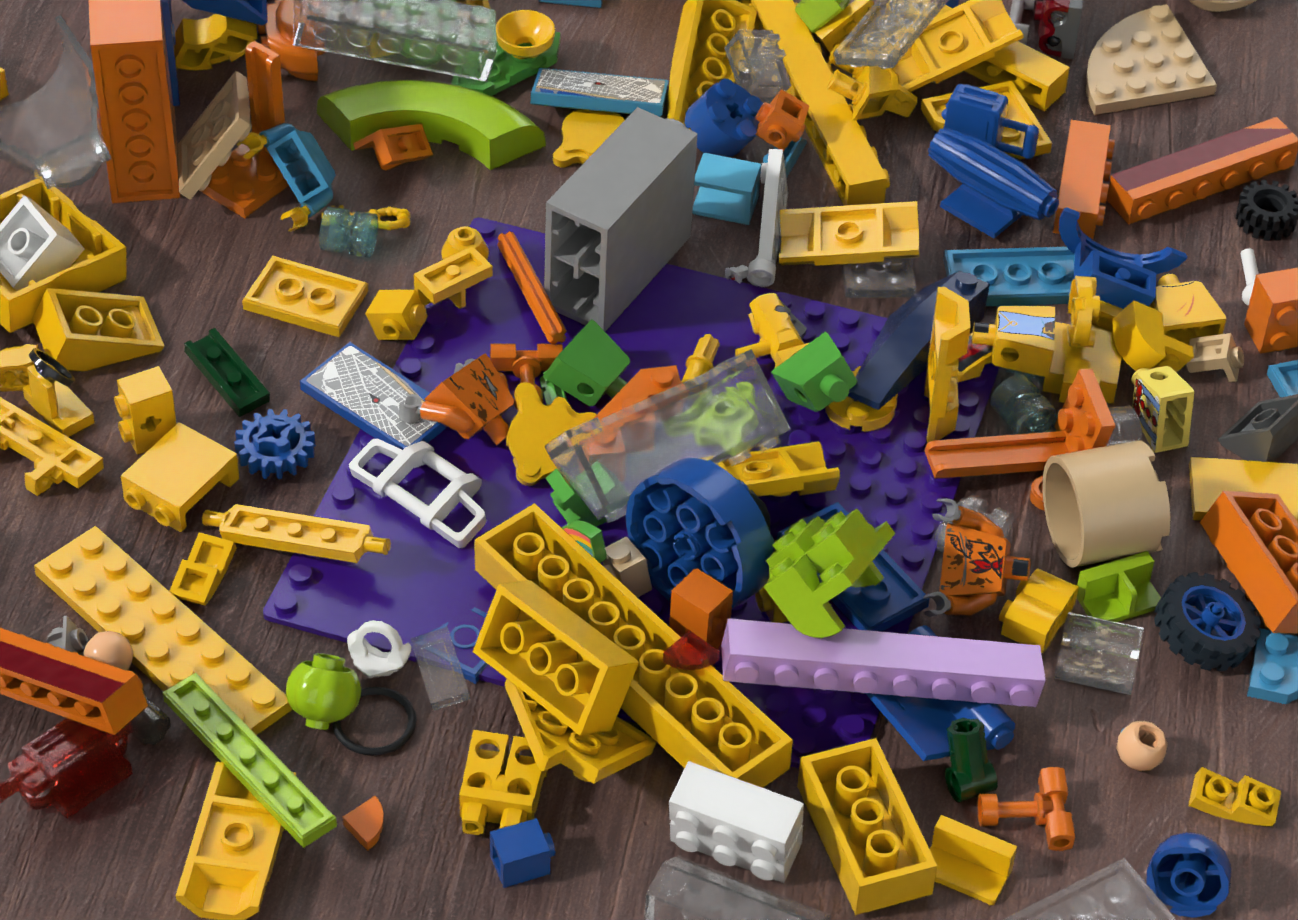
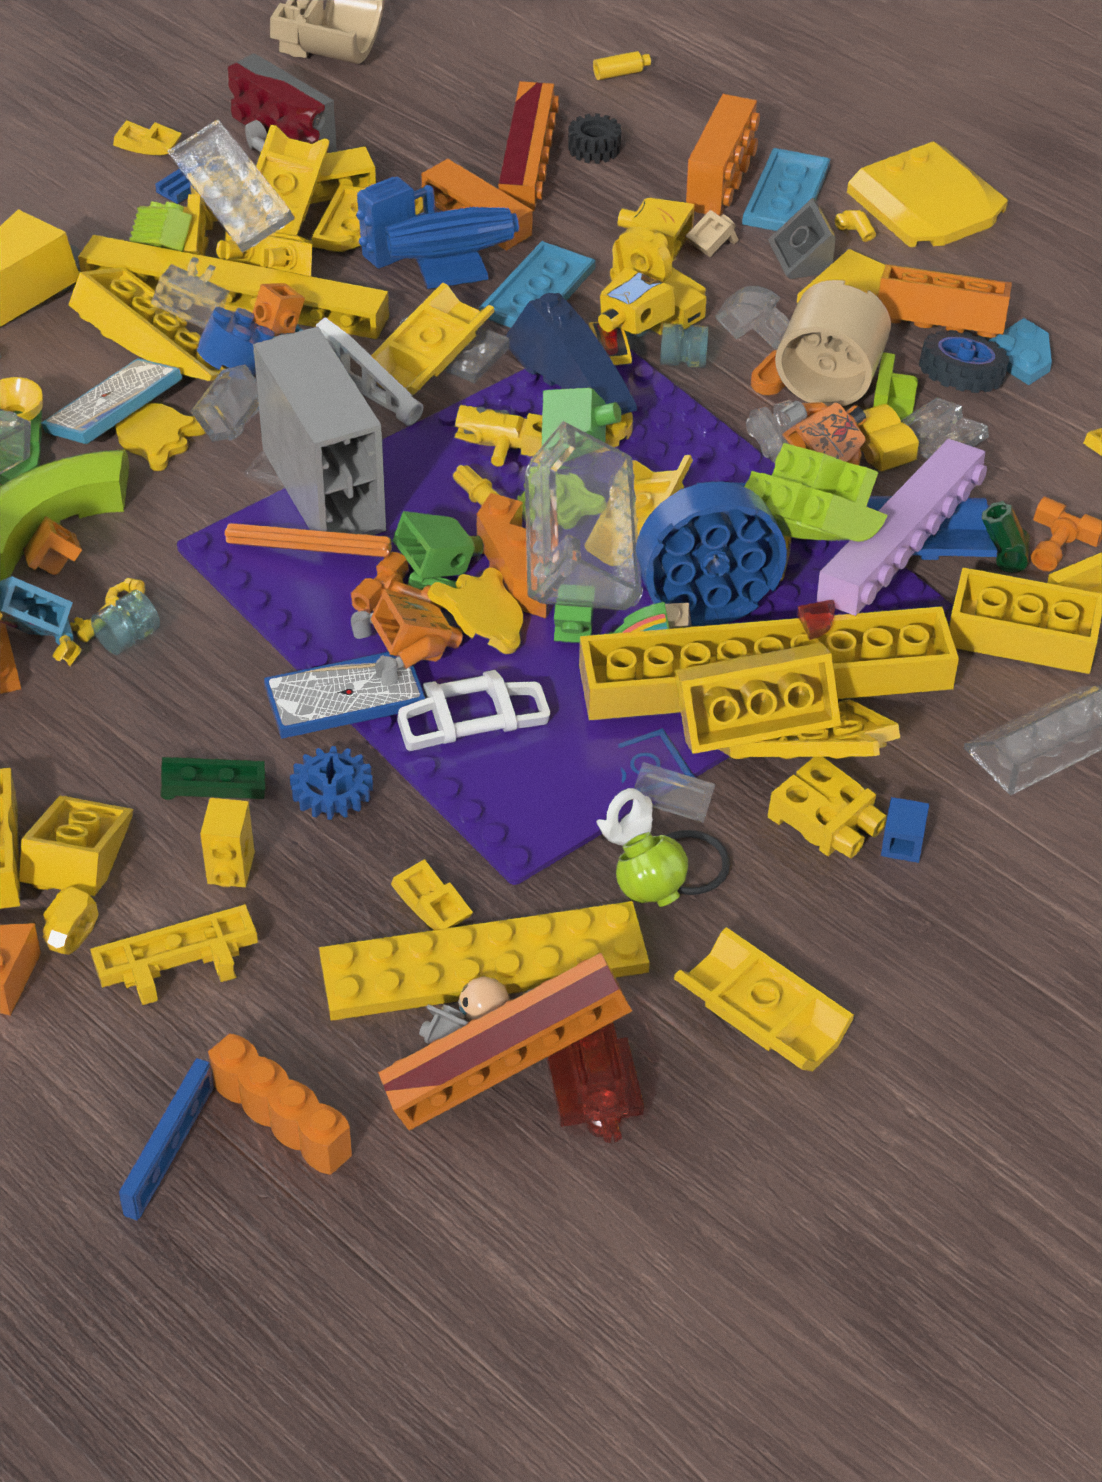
camera: 55 degrees left, 0 degrees up
(52, 397) = (135, 907): yellow piece -> none
(177, 475) = (316, 862): yellow panel -> none
(250, 760) = (700, 947): lime tile -> none
(296, 533) = (455, 811): yellow plate -> none
(305, 296) = (163, 690): yellow tile -> none
(366, 822) = (798, 913): orange tile -> none
(396, 314) = (257, 635): yellow brick -> none
(452, 277) = (262, 575): yellow panel -> none
(463, 238) = (222, 560): yellow cone -> none
(701, 606) = (772, 592): orange panel -> none
(735, 822) = (979, 684): white piece -> none
(736, 273) = (392, 426): white piece -> none
(947, 344) = (647, 336): yellow piece -> none
(1080, 426) = (741, 329): orange bracket -> none
(1118, 274) = (591, 233): blue piece -> none
(1142, 342) = (687, 252): yellow brick -> none
(1142, 745) = (1050, 449): light nougat piece -> none
(1145, 64) = (384, 118): tan plate -> none
(1163, 407) = (742, 268): light yellow torso -> none
(1250, 271) = (663, 188): white bar -> none

